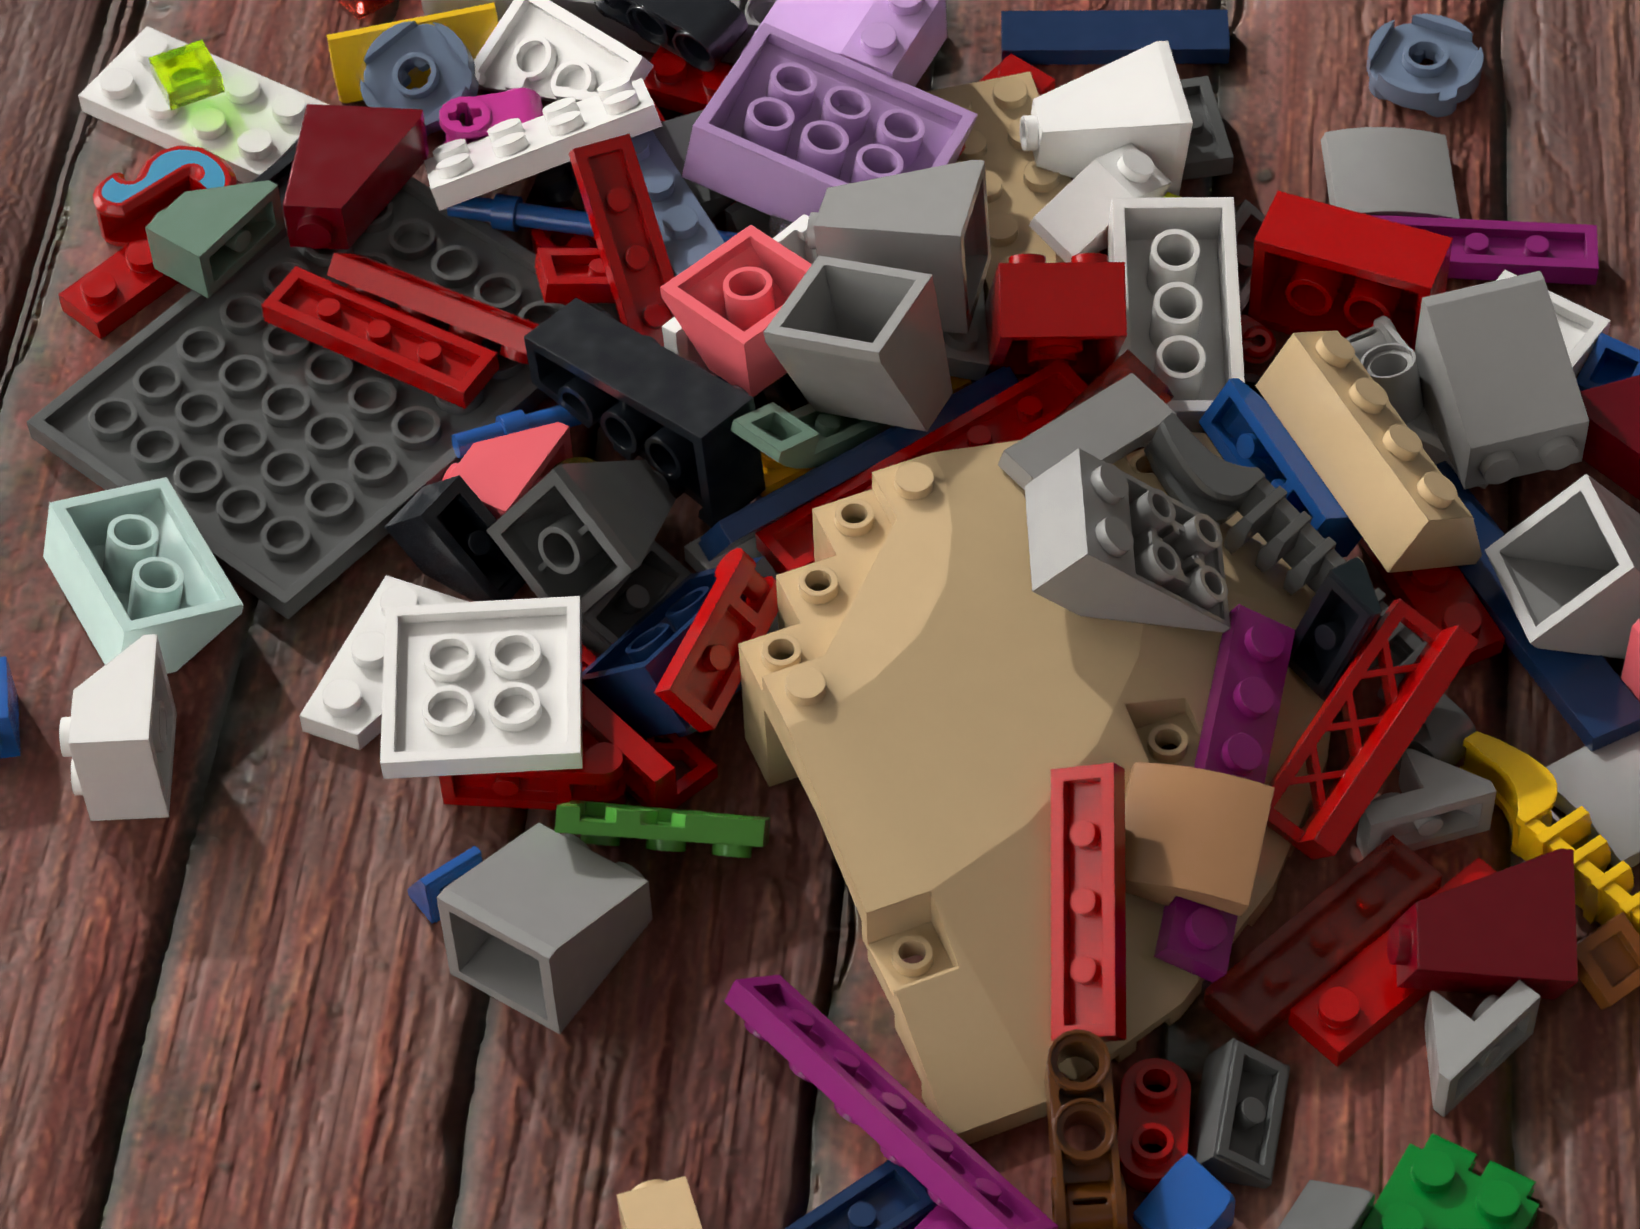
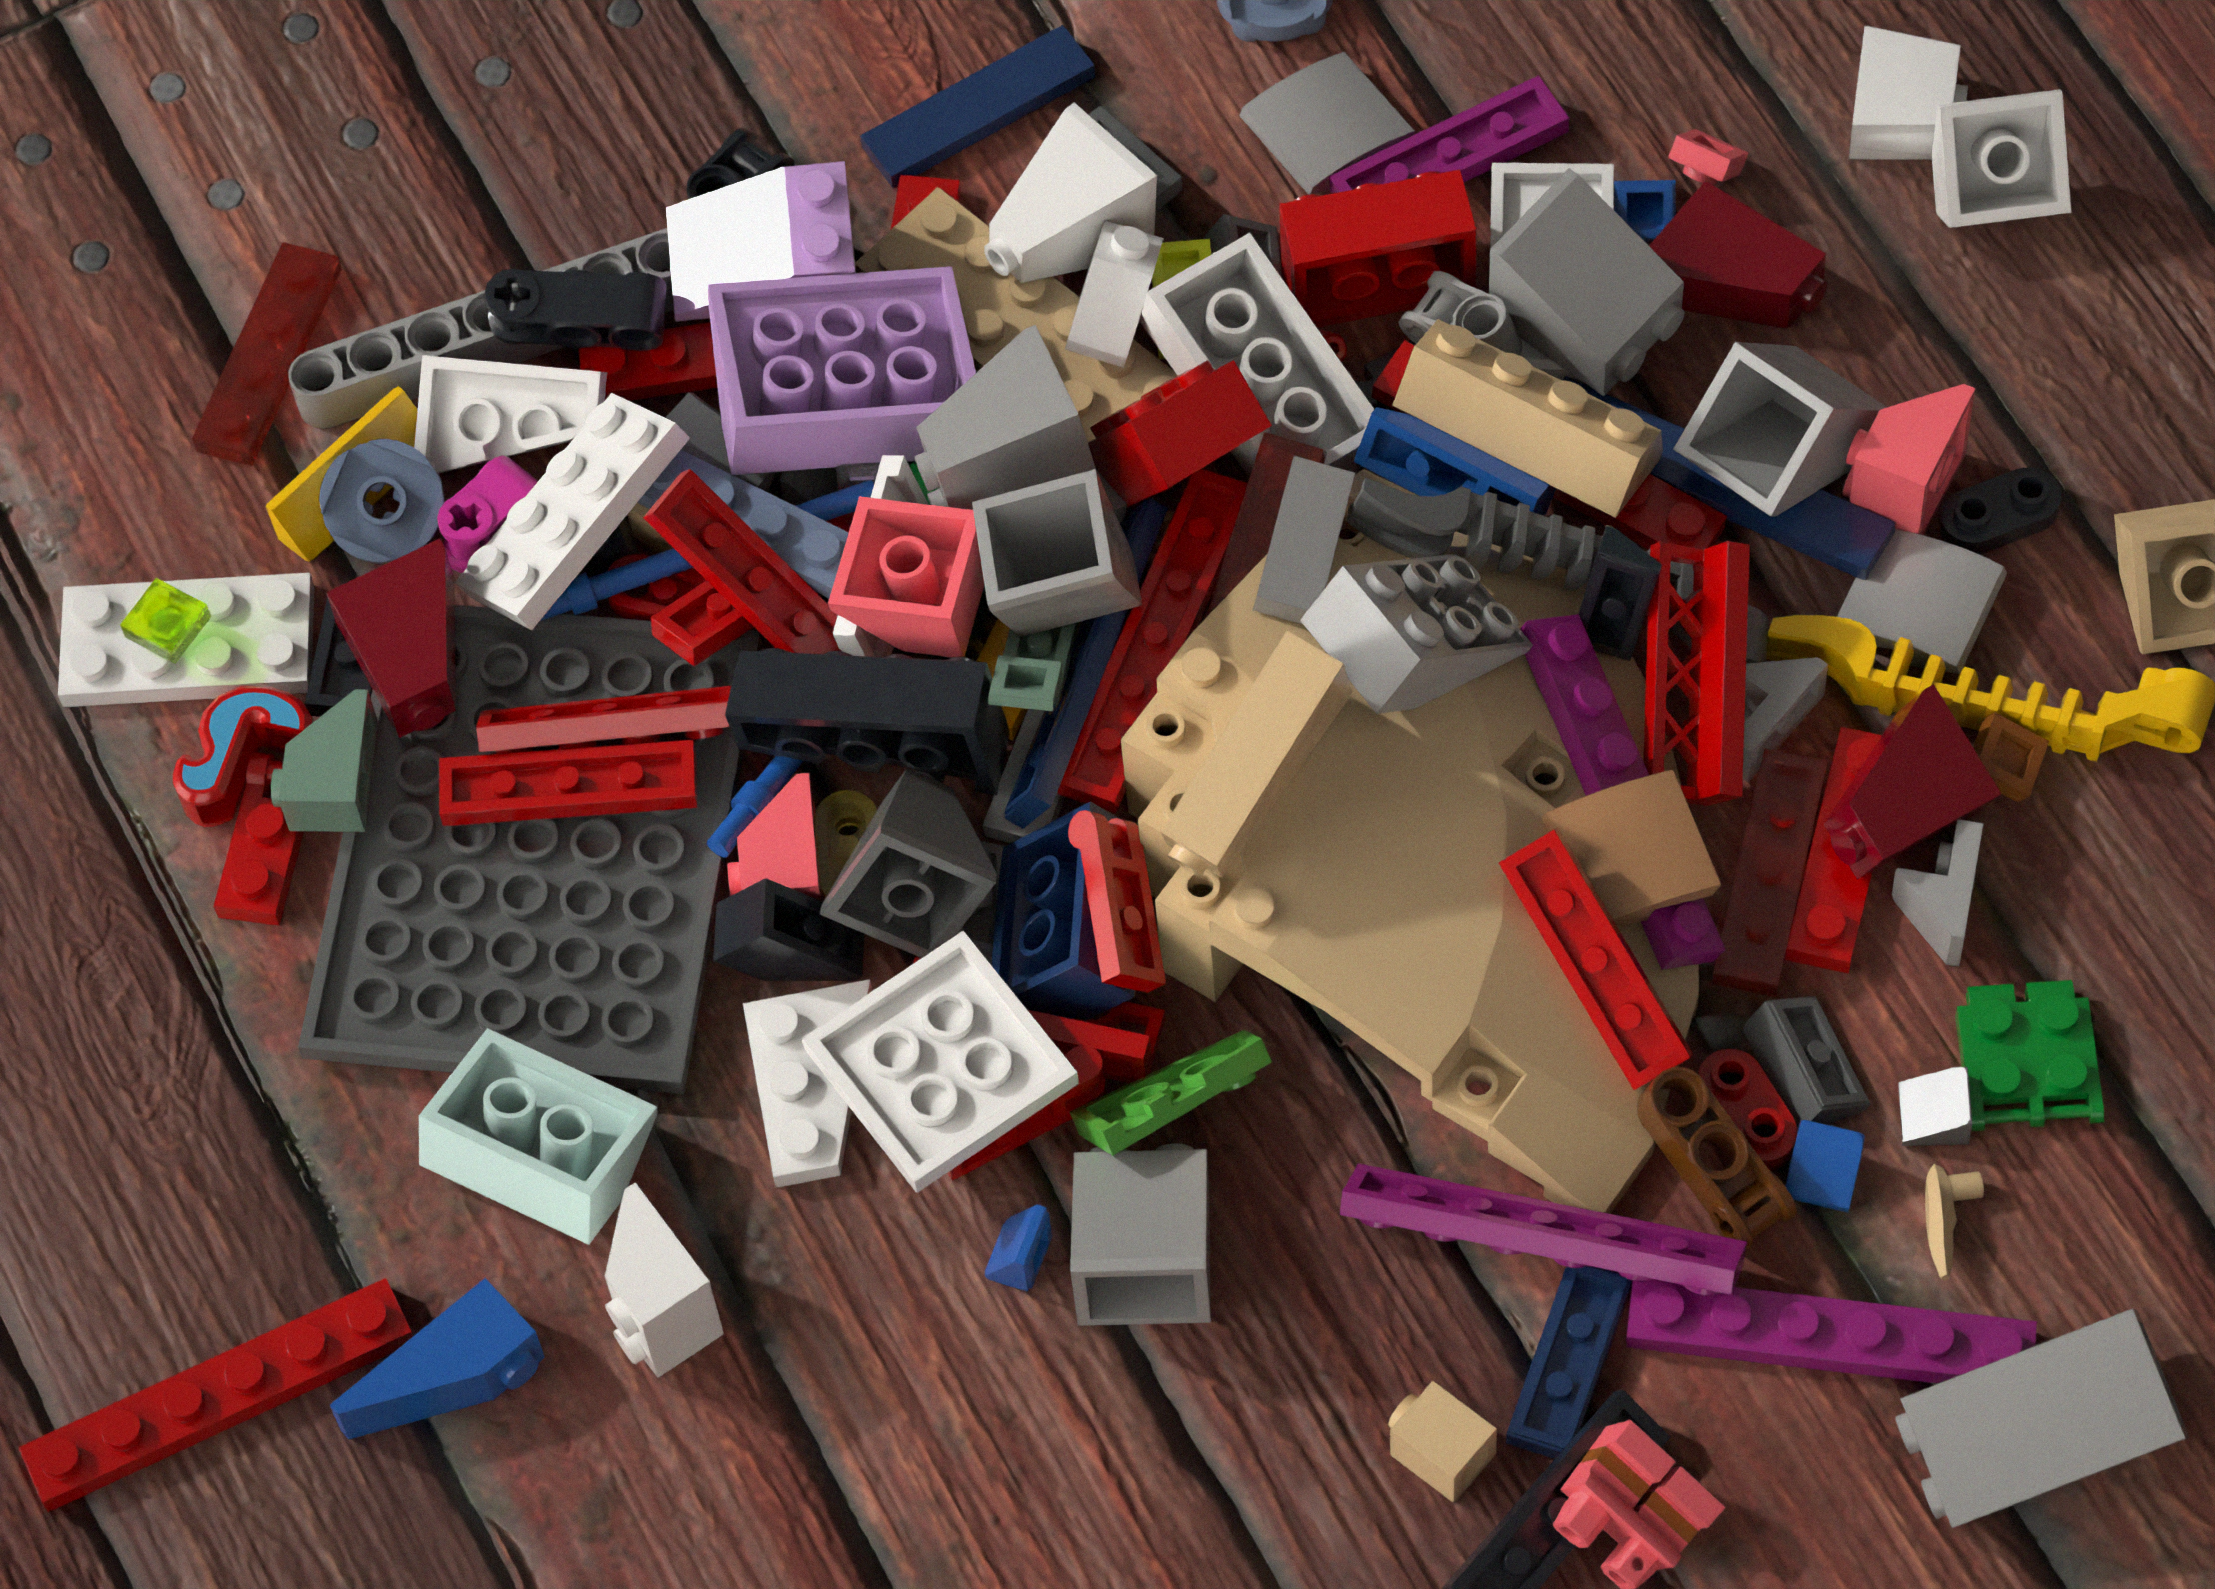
camera: 30 degrees left, 10 degrees up
(893, 558) = (1256, 756): none -> tan slope

